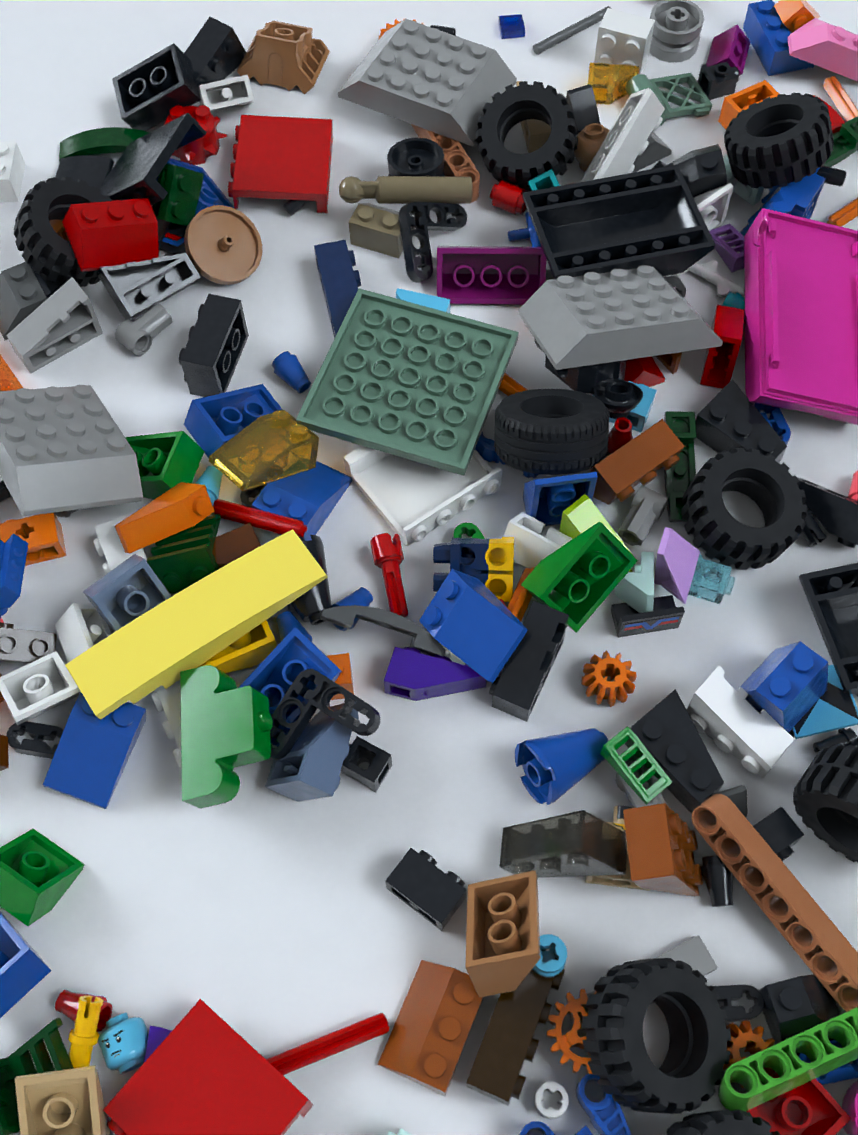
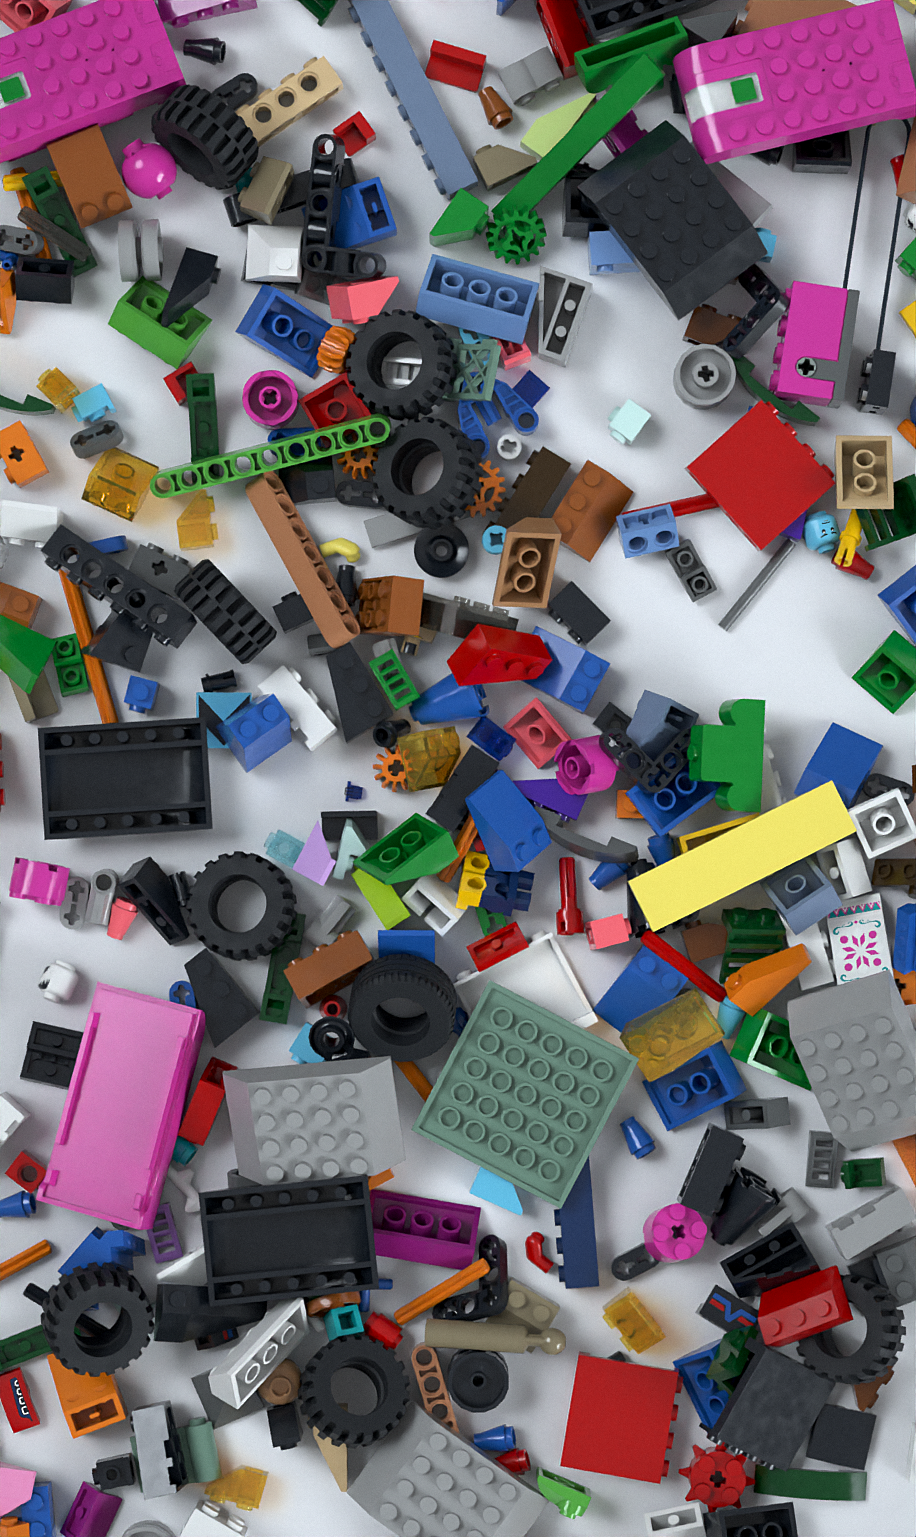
camera: 175 degrees left, 25 degrees up
(62, 372) = (863, 1172): none -> dark green bracket
(62, 559) = (859, 938): none -> white tile
(111, 397) = (812, 1147): none -> dark grey slope
(165, 404) = (757, 1113): none -> dark grey slope
(170, 328) = (743, 1206): none -> black cone
(205, 964) = (757, 584): none -> dark grey bar
(223, 245) = (692, 1301): medium nougat piece -> none
(252, 287) = (689, 1232): none -> dark pink brick
(278, 230) = (633, 1321): none -> clear yellow slope
(282, 280) = (636, 1269): none -> black beam
(292, 968) = (690, 570): none -> dark grey slope
(327, 101) = (567, 1495): none -> bright green slope
(345, 537) = (607, 931): none -> coral slope
(352, 1007) = (647, 531): none -> medium blue brick
(376, 125) = (516, 1461): none -> red cone
(377, 271) = (534, 1252): none -> red arm
(387, 137) = (496, 1439): none -> blue cone
(397, 696) = (584, 766): none -> dark pink brick
(437, 817) = (571, 673): none -> blue slope
(451, 742) = (536, 732): none -> coral slope
(460, 227) = (442, 1291): none -> orange axle
(460, 509) = (497, 946): none -> red panel
(505, 726) = (491, 738): none -> clear blue bracket
(517, 806) = (498, 656): none -> red wedge
(577, 690) = (429, 757): none -> clear yellow slope
(614, 925) = (441, 566): none -> black dish
(626, 710) = (387, 732): none -> black cone
(650, 651) = (352, 791): none -> clear blue piece
(686, 81) = (158, 1450): none -> wedge
(735, 930) = (342, 547): none -> light yellow arm

